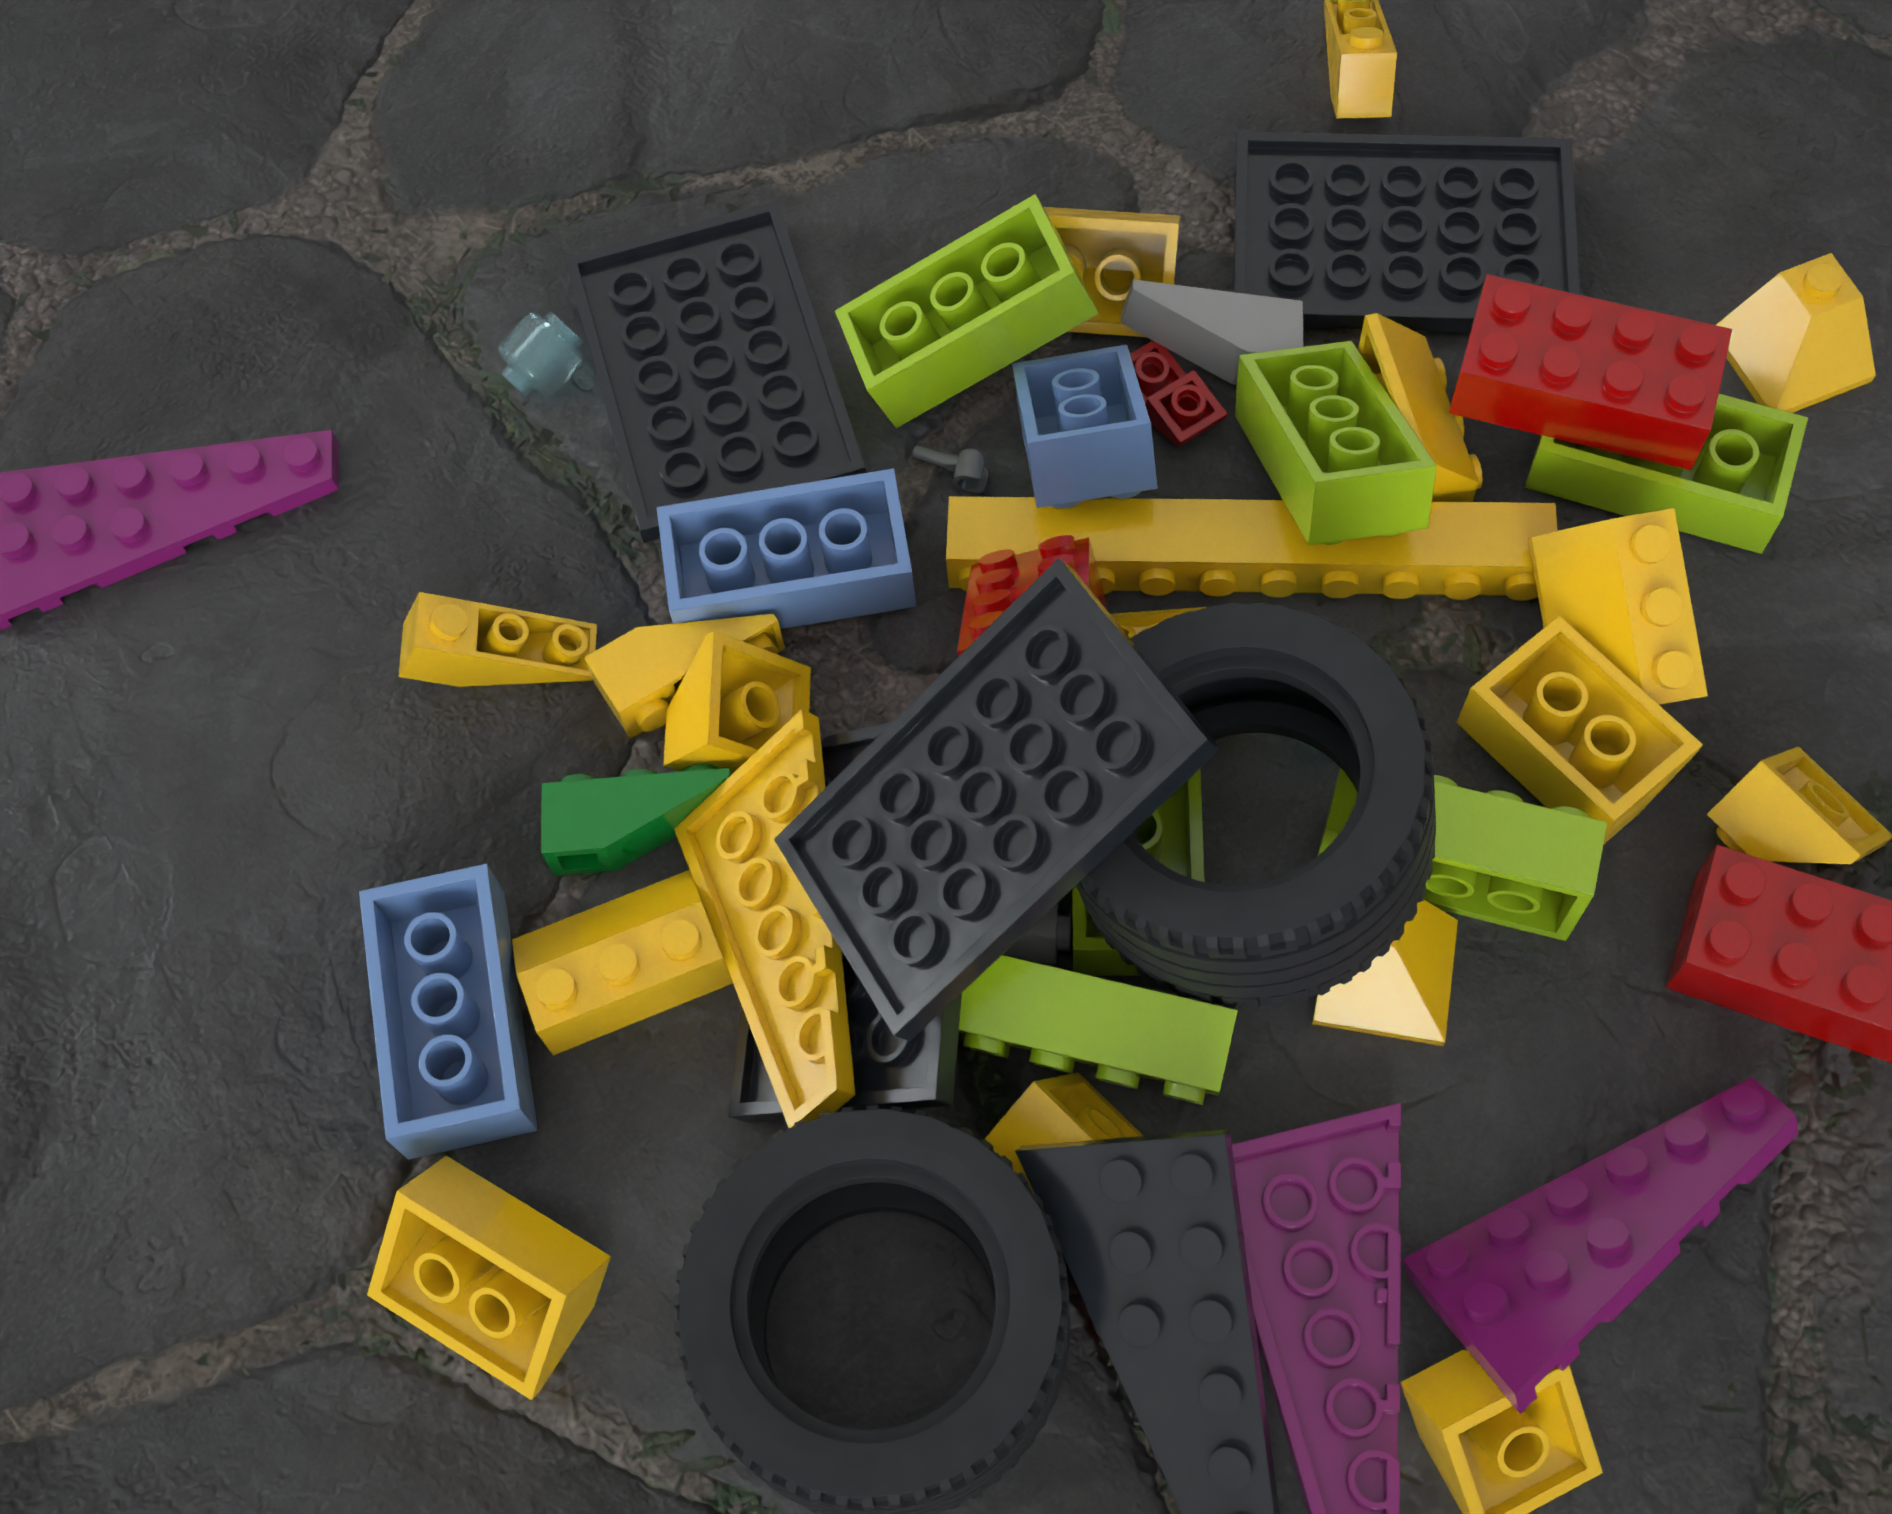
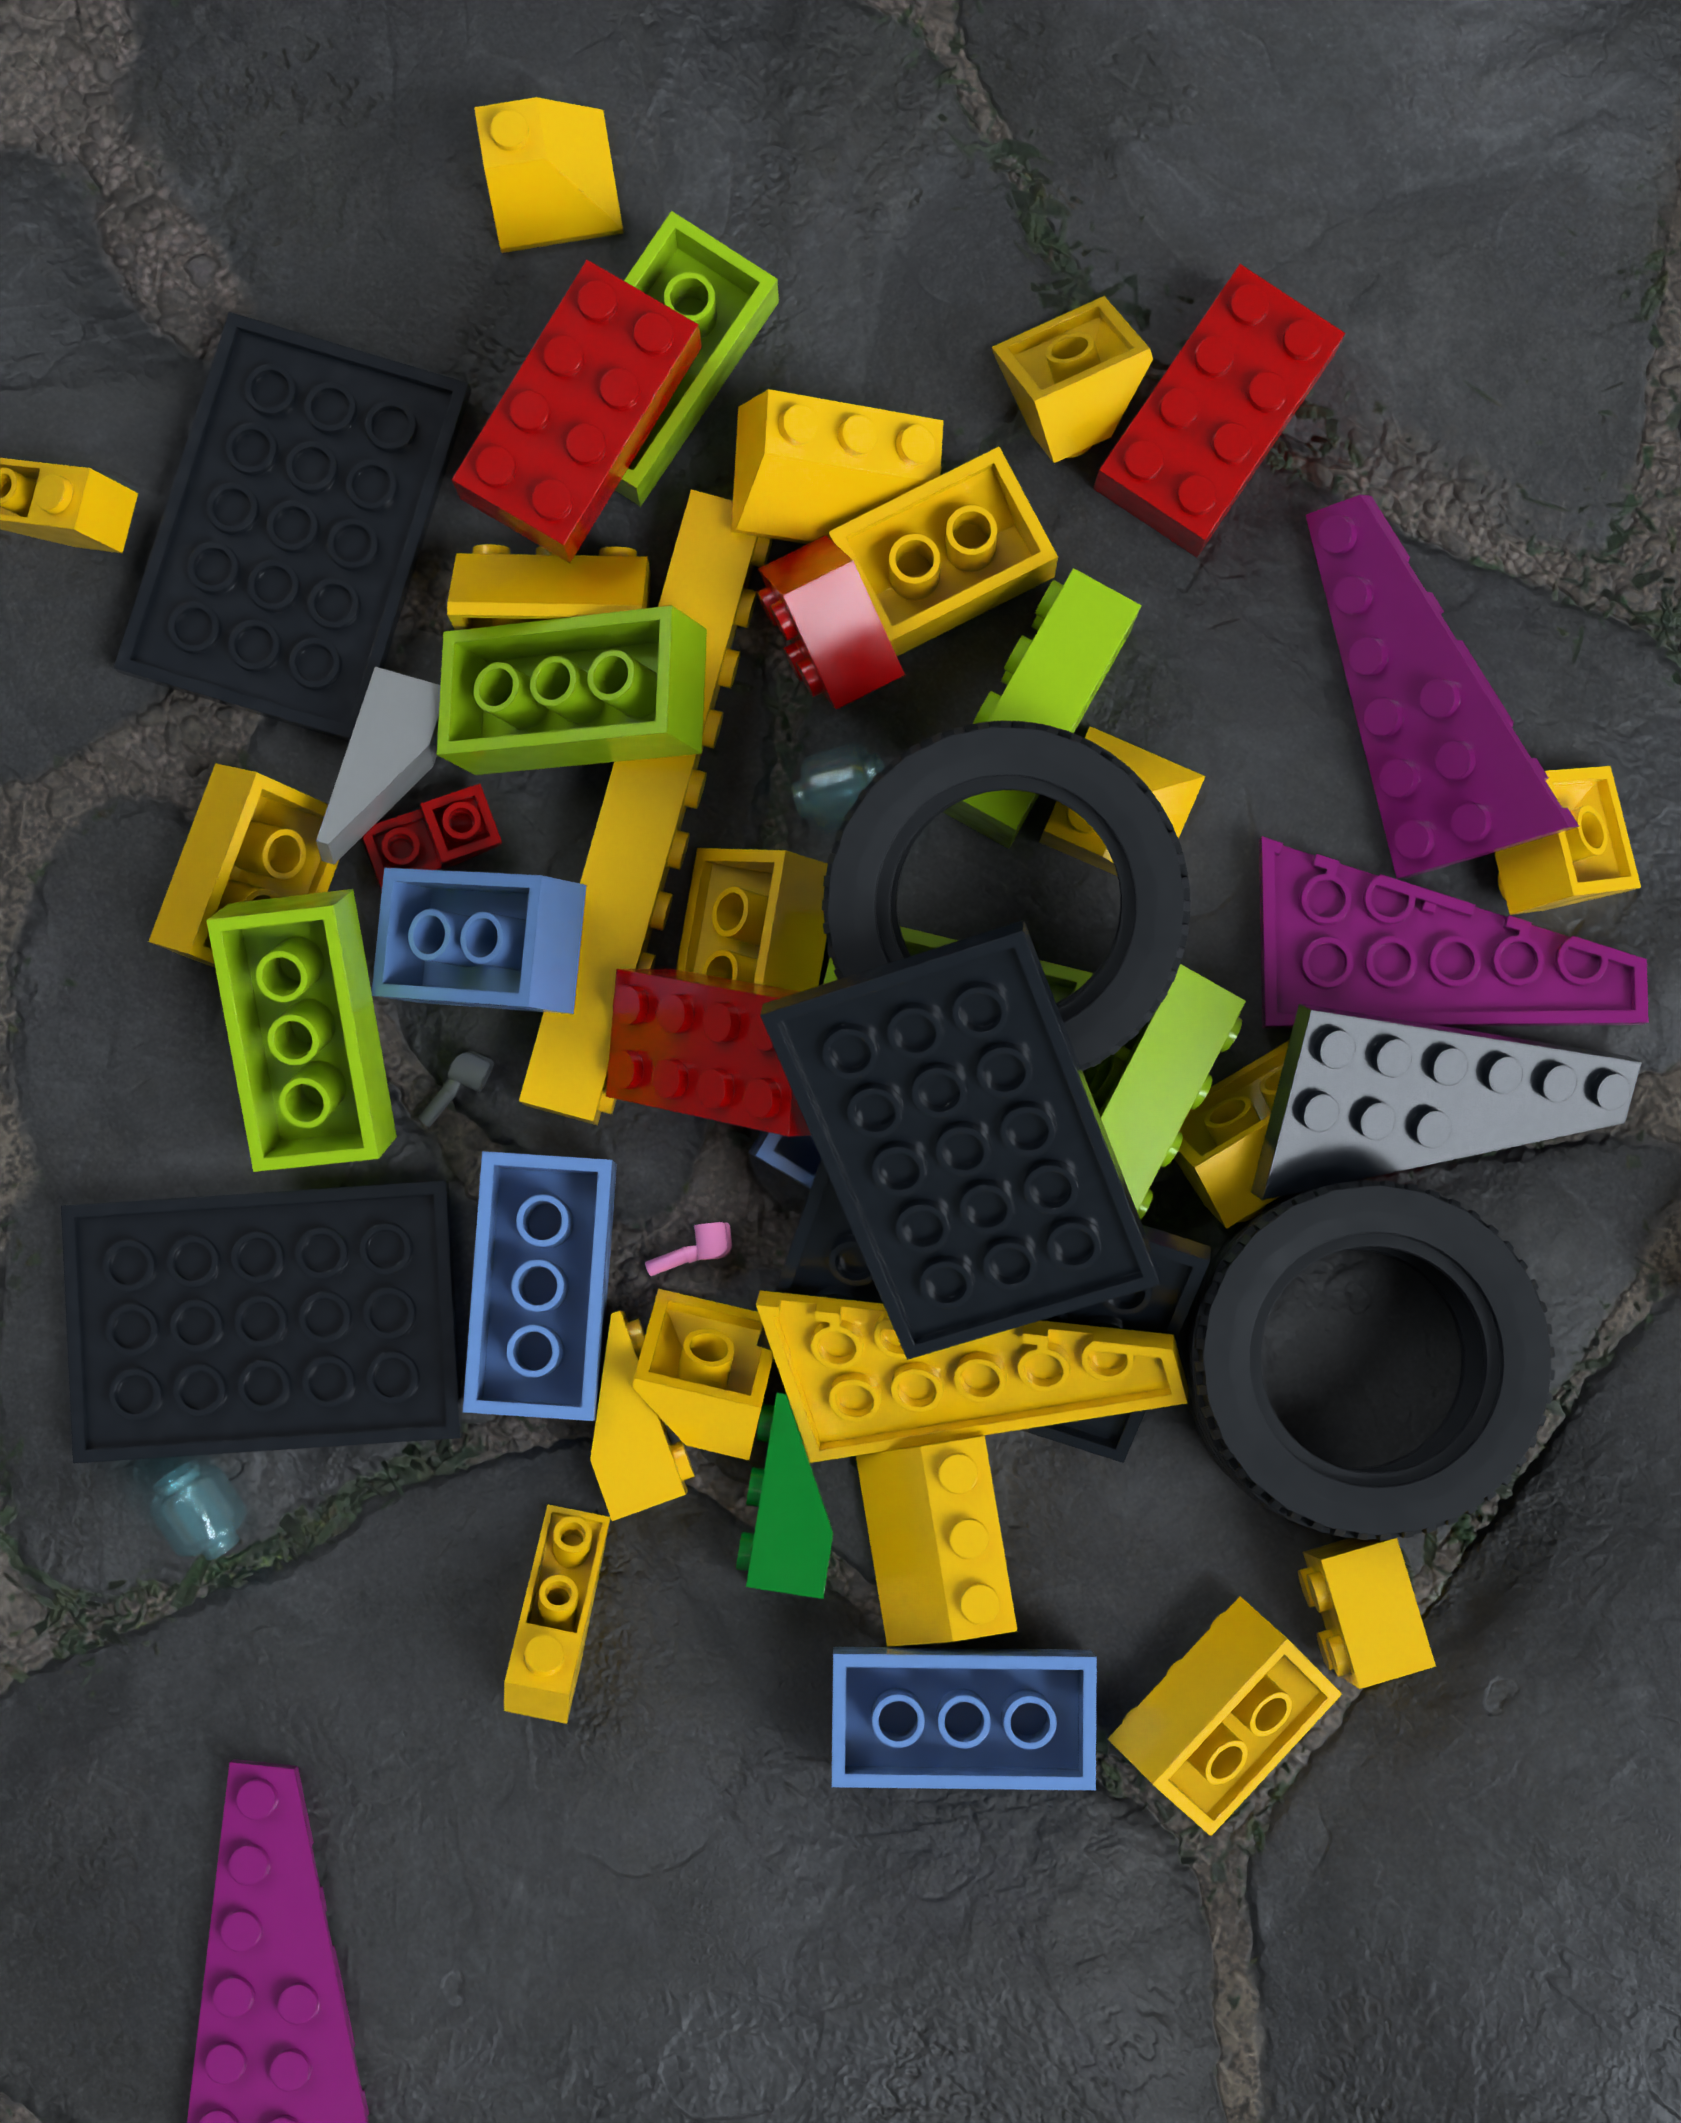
camera: 85 degrees left, 20 degrees up
(610, 1385) = (1366, 1610): none -> yellow brick
(862, 698) = (712, 1242): none -> bright pink hand
(1467, 630) = (831, 623): none -> red brick

